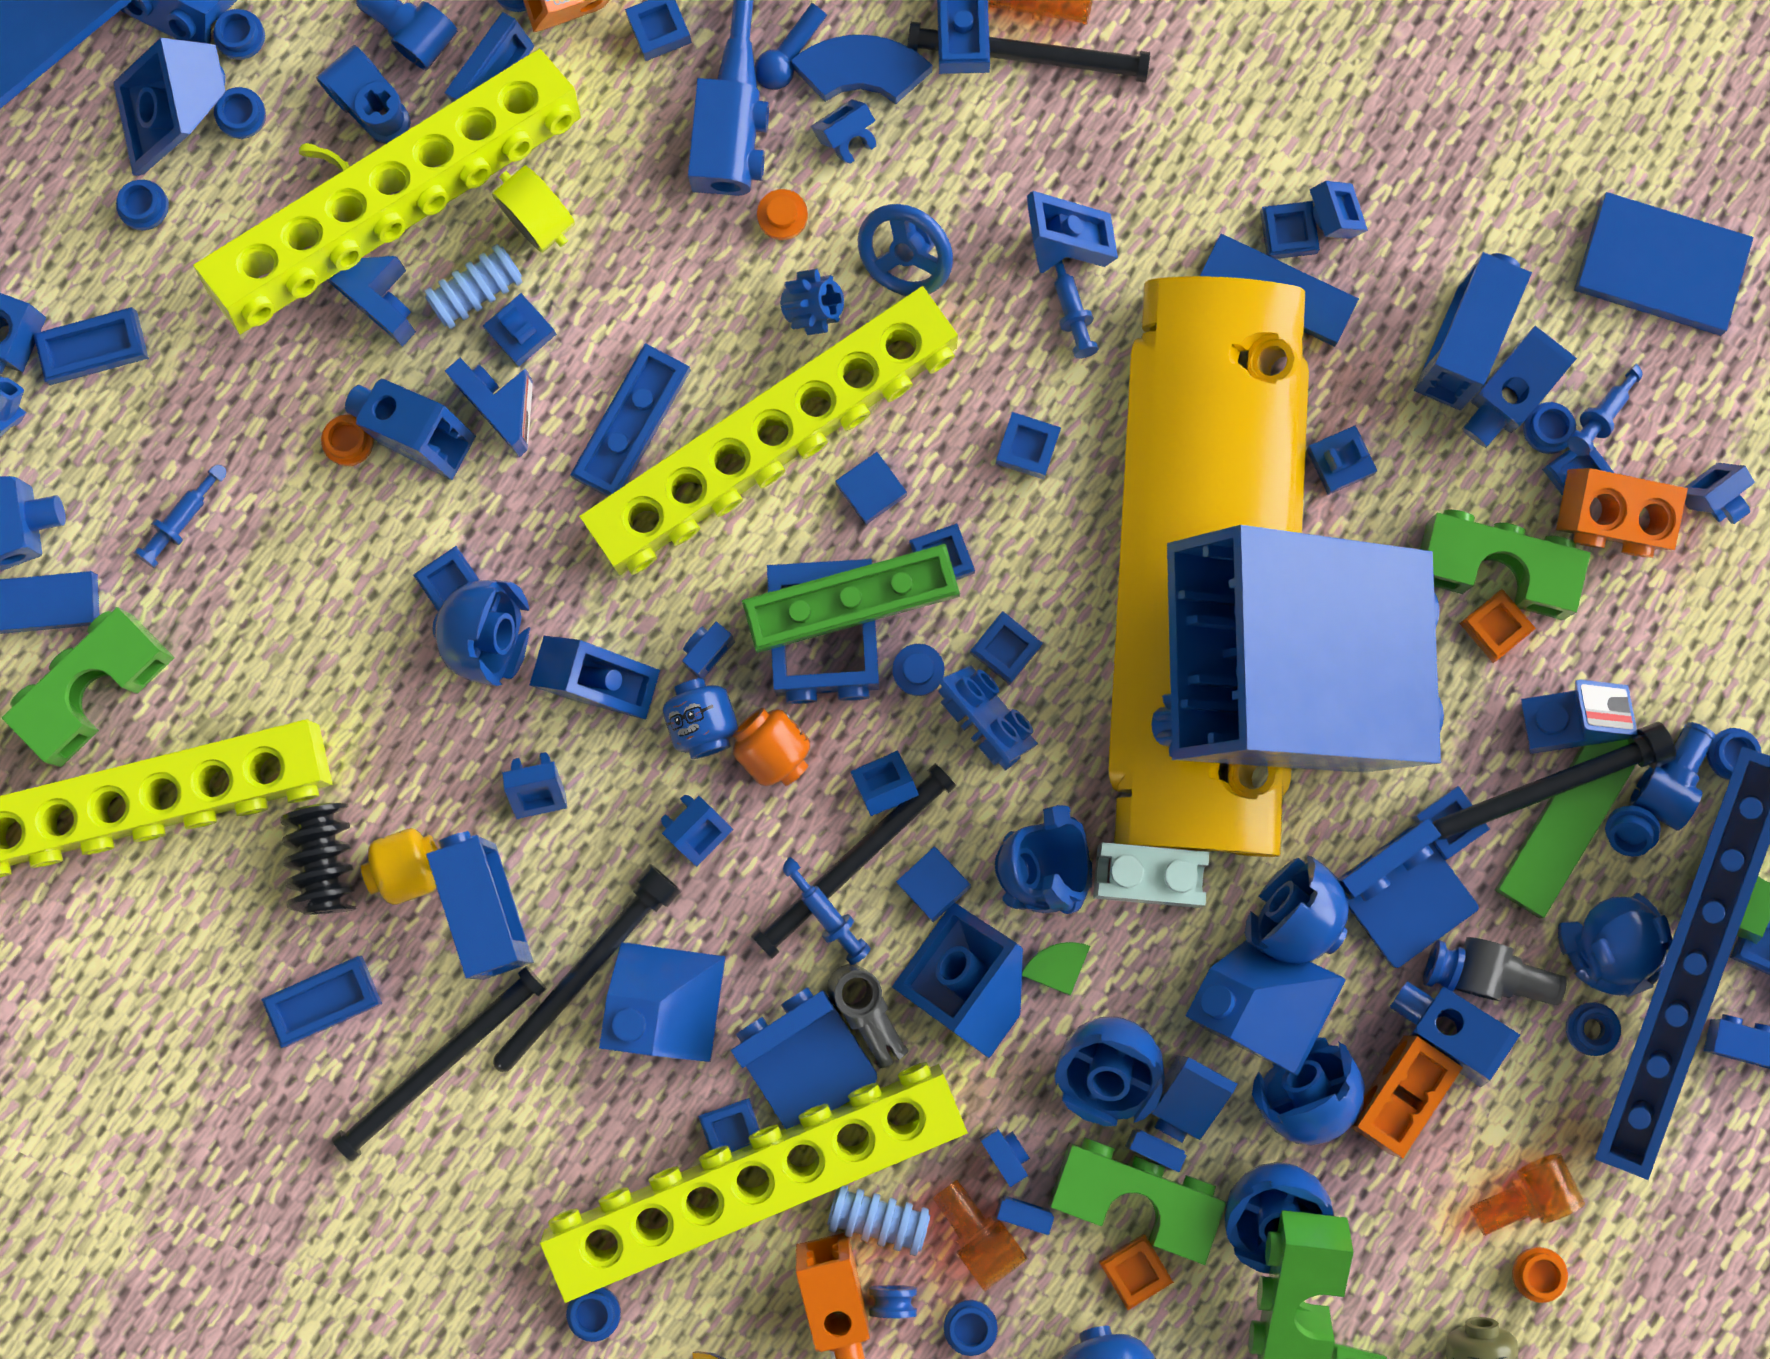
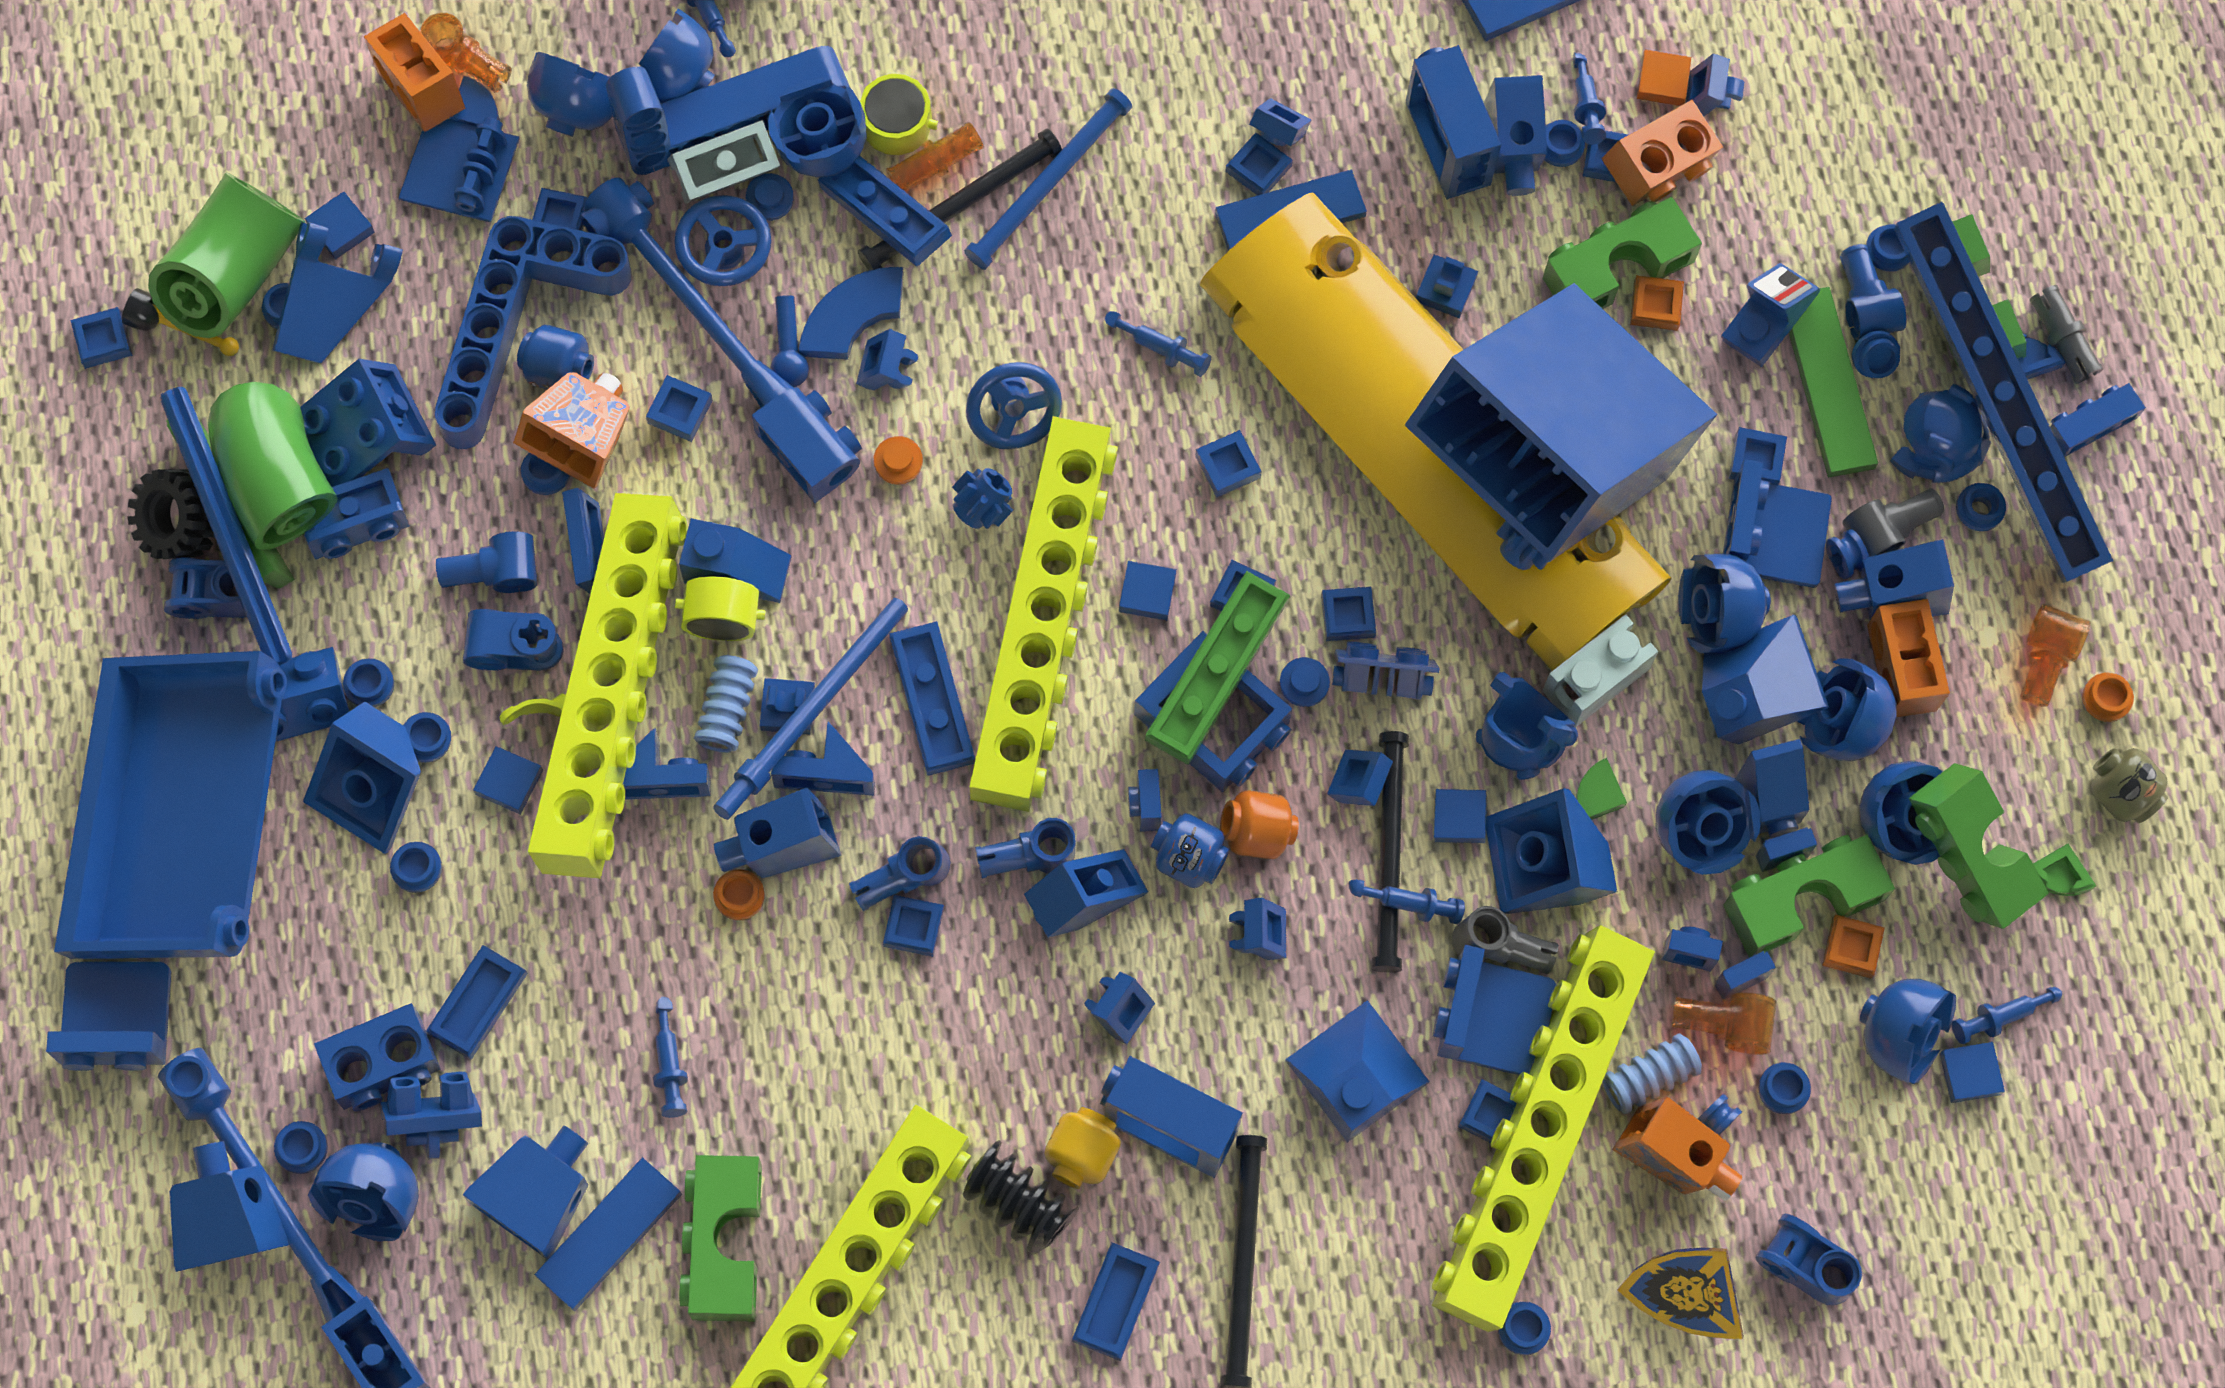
camera: 50 degrees left, 10 degrees down
(265, 194) = (508, 780): none -> blue tile
(424, 359) = (755, 772): none -> blue bar
(476, 534) = (899, 873): none -> blue pin
(480, 631) = (974, 932): blue cylinder -> none
(580, 605) = (1025, 850): none -> blue pin
(582, 181) = (734, 554): none -> blue slope
(651, 893) = (1274, 1001): black piece -> none
(1069, 231) = (1111, 295): blue slope -> none
(1114, 94) = (1115, 105): none -> blue bar
(1650, 747) = (1835, 289): black piece -> none
(1689, 449) = (1664, 77): none -> orange tile

